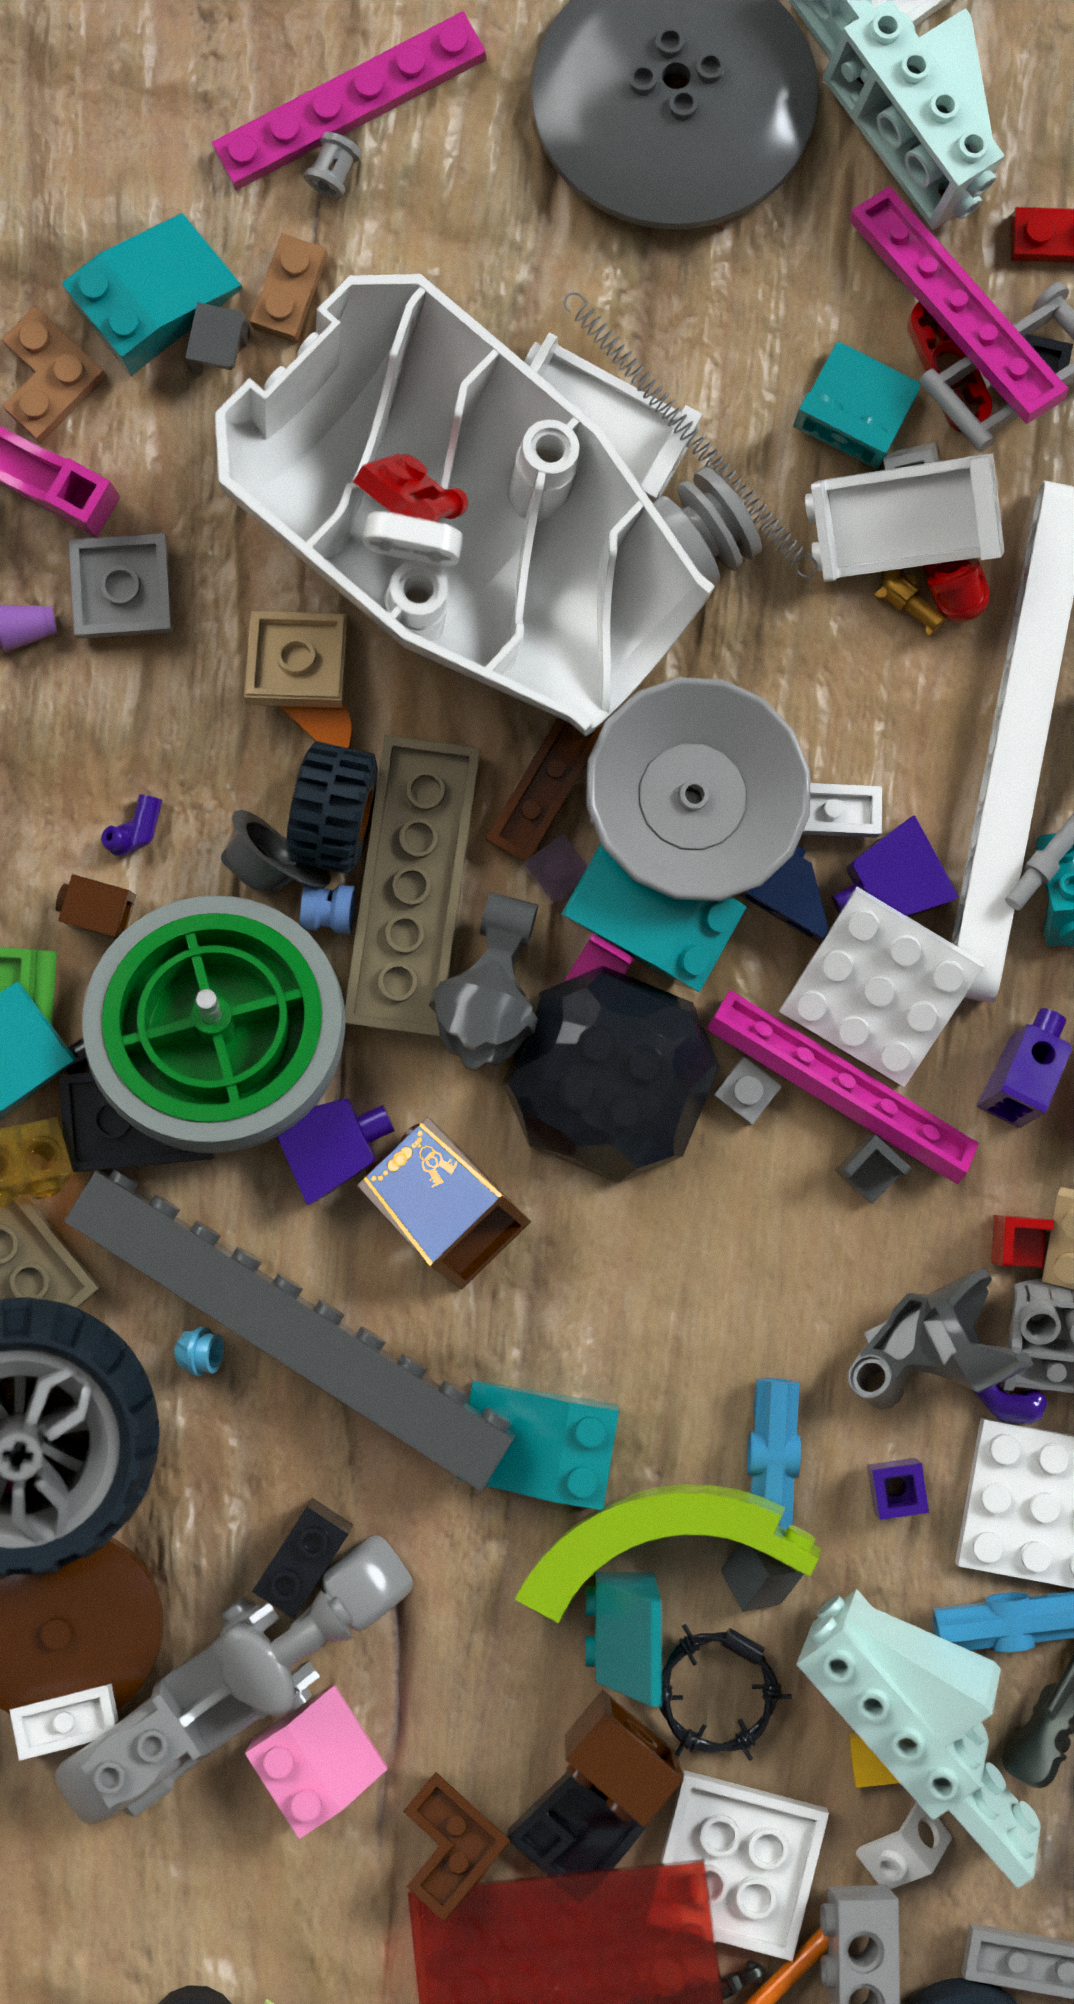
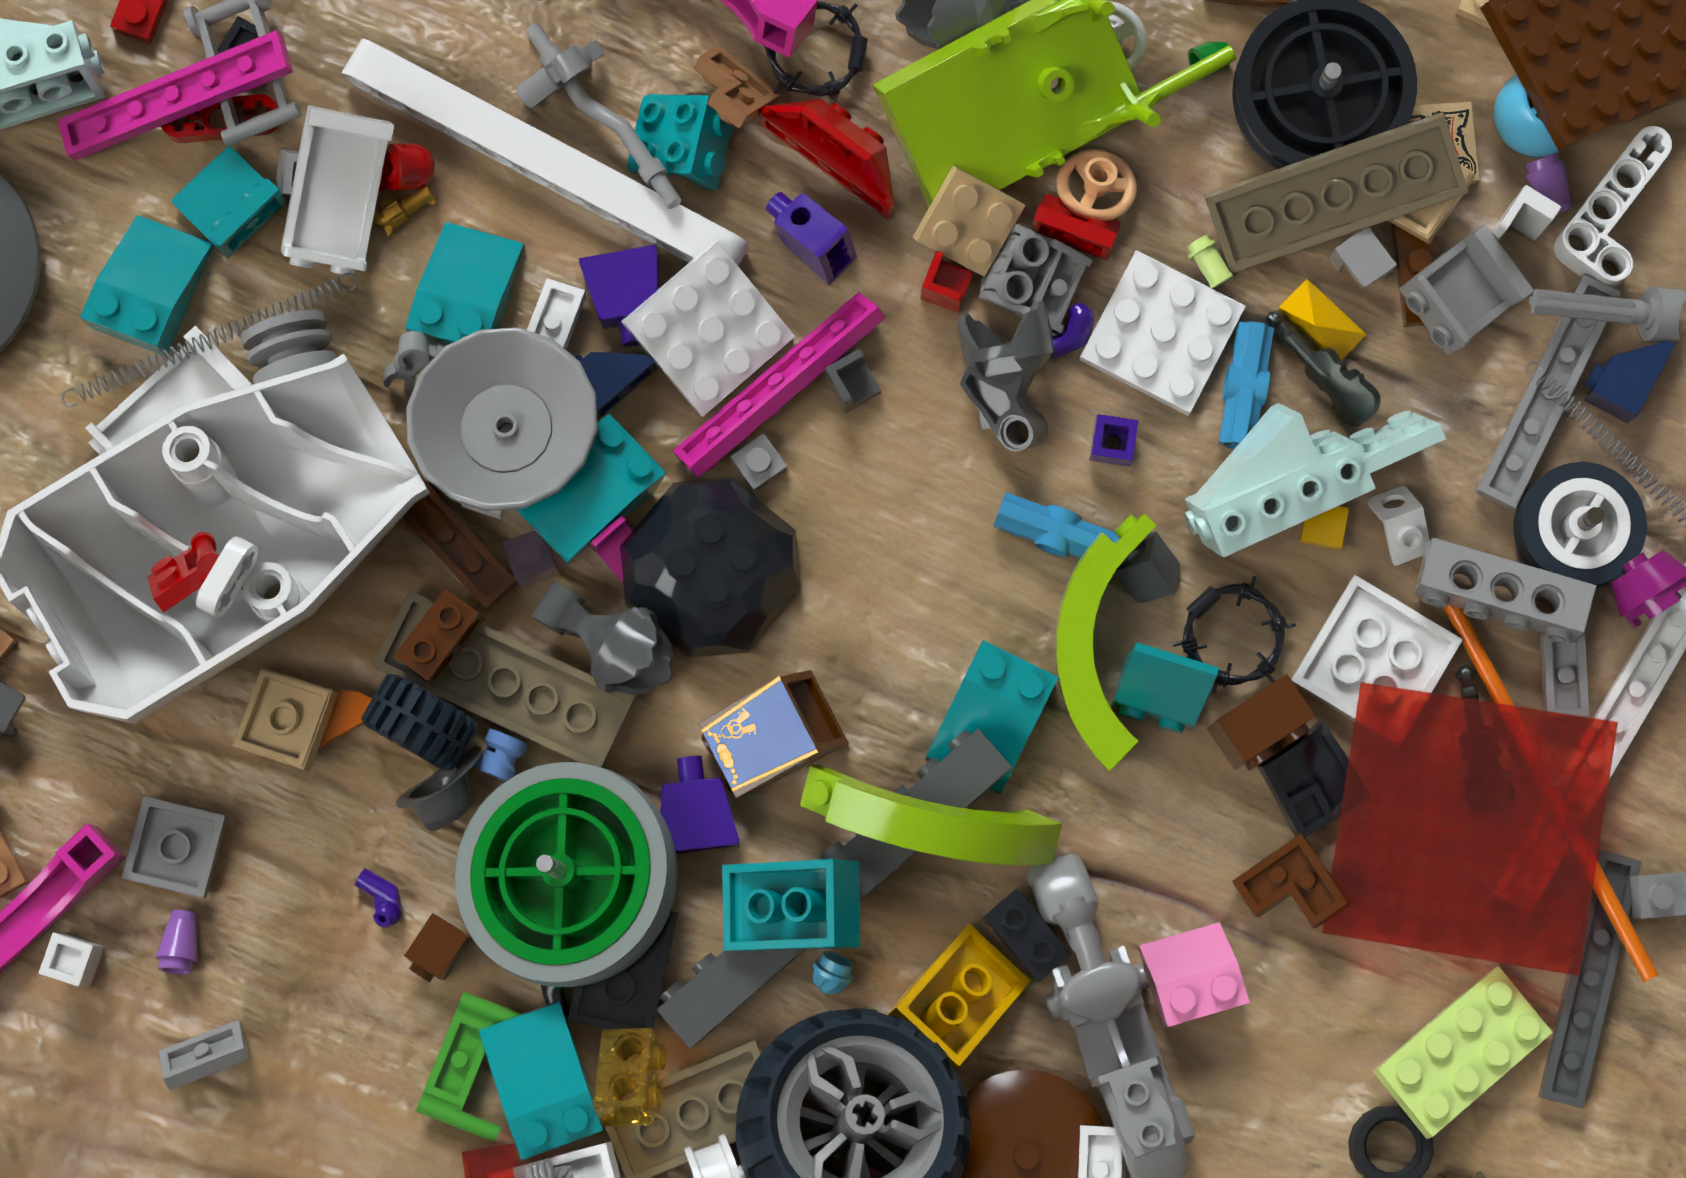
camera: 75 degrees left, 5 degrees down
(212, 1501) = (961, 994): none -> yellow slope
(247, 1289) = (791, 905): none -> teal slope
(381, 1419) = (931, 827): none -> lime arch
(433, 798) = (439, 637): none -> reddish brown brick
(734, 347) = (147, 285): none -> teal slope
(742, 665) = (412, 356): none -> light grey bar
(843, 697) = (464, 284): none -> teal slope

